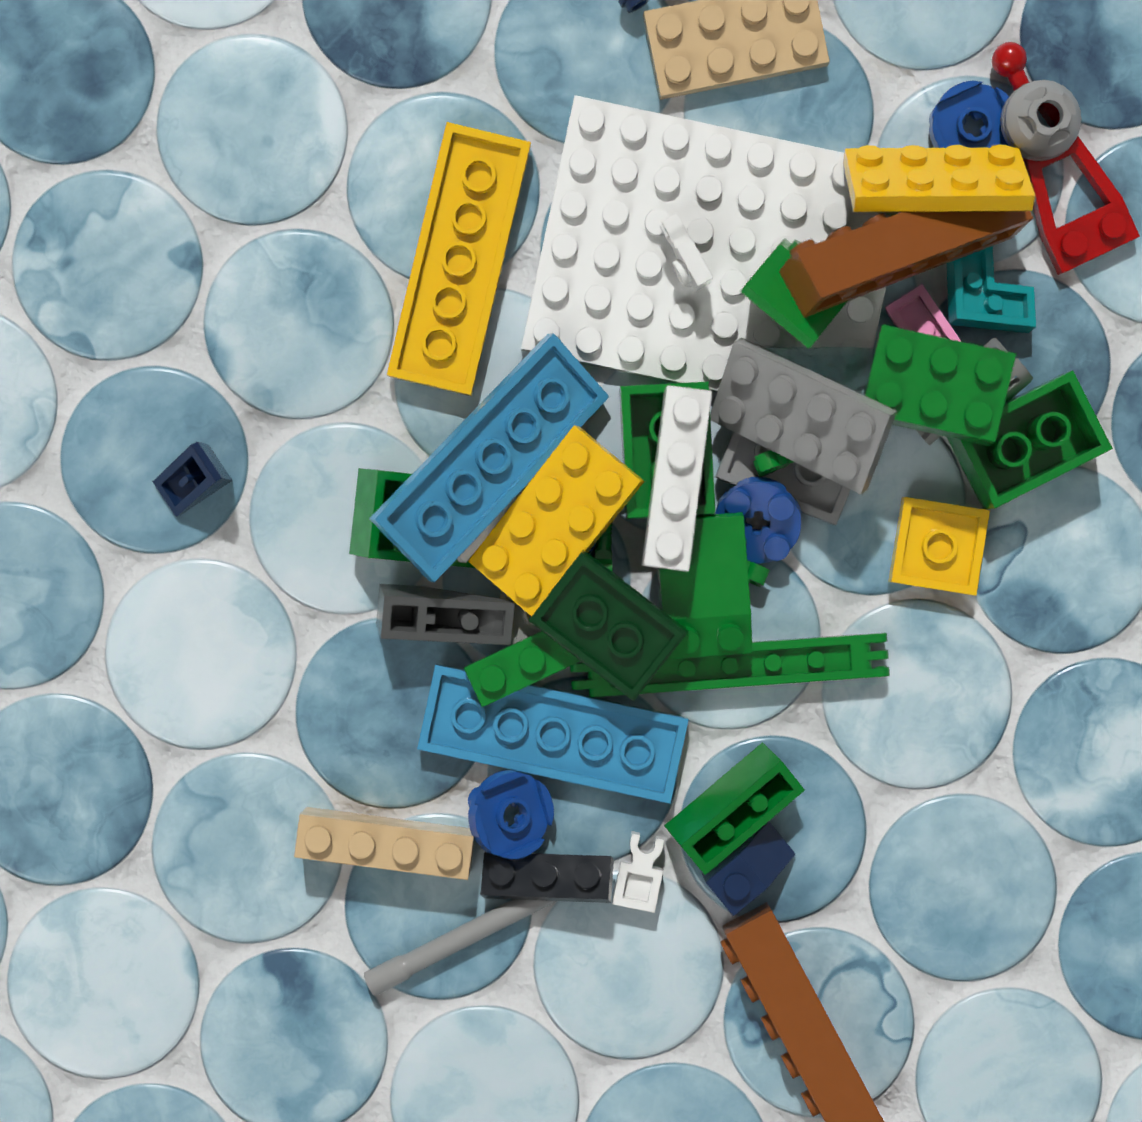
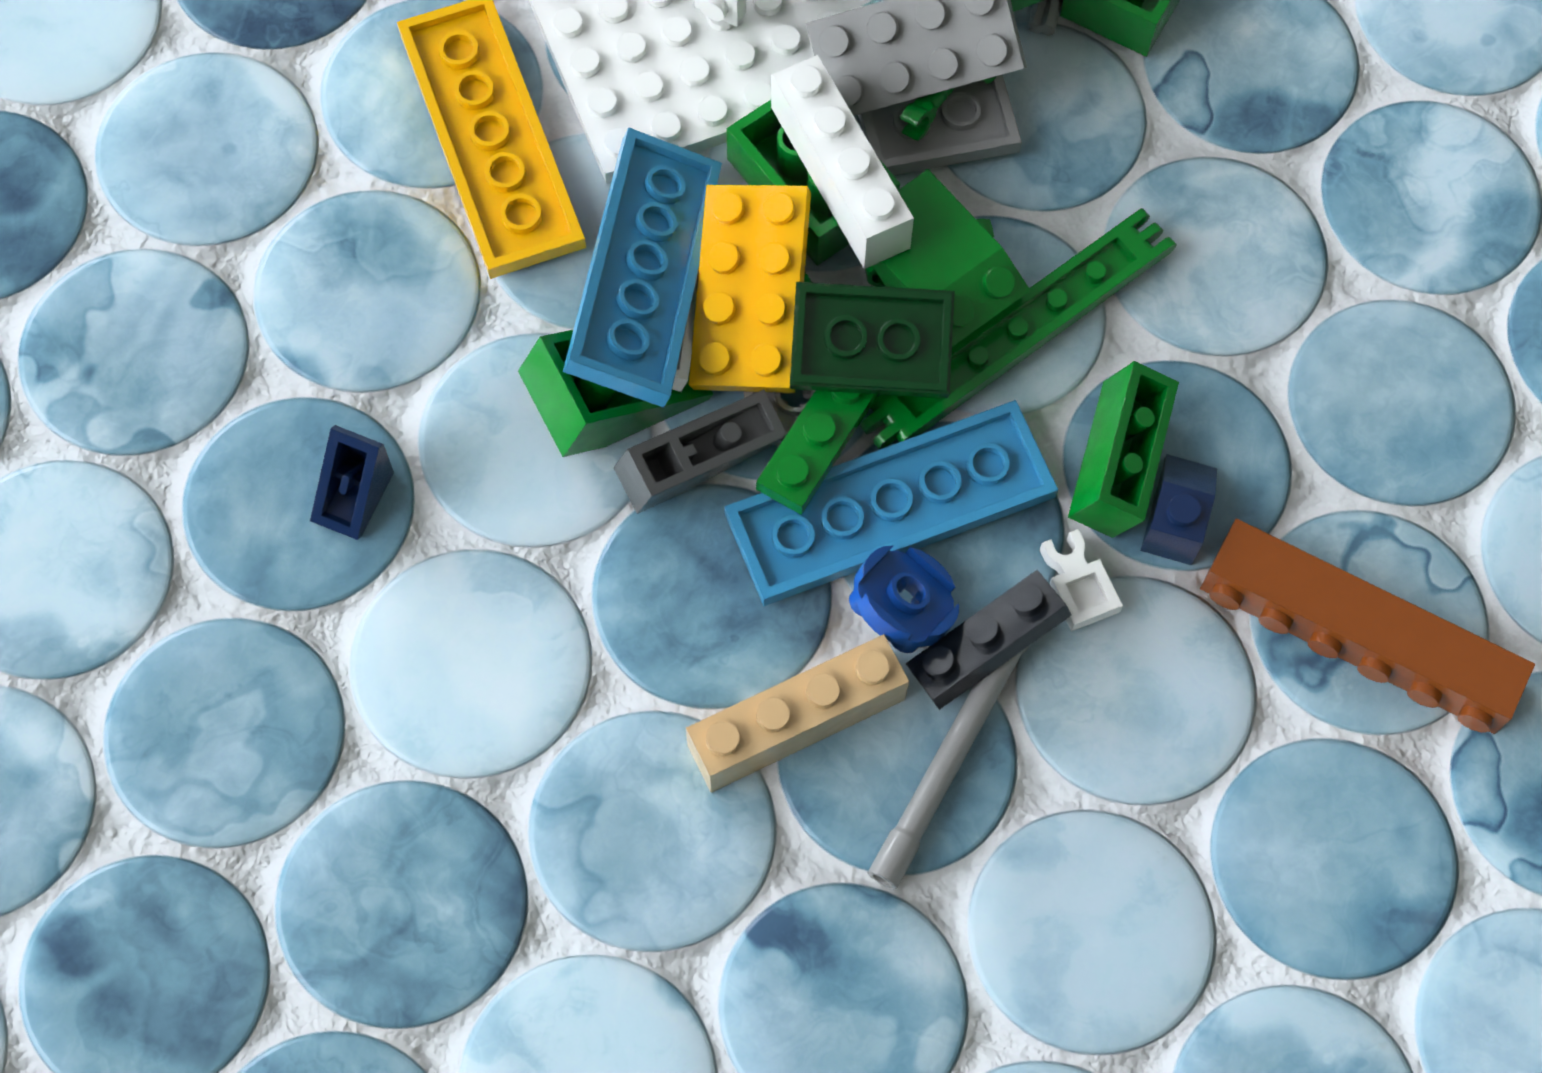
camera: 35 degrees left, 20 degrees down
(778, 507) = (957, 155): blue plate -> none
(939, 546) = (1131, 107): yellow plate -> none

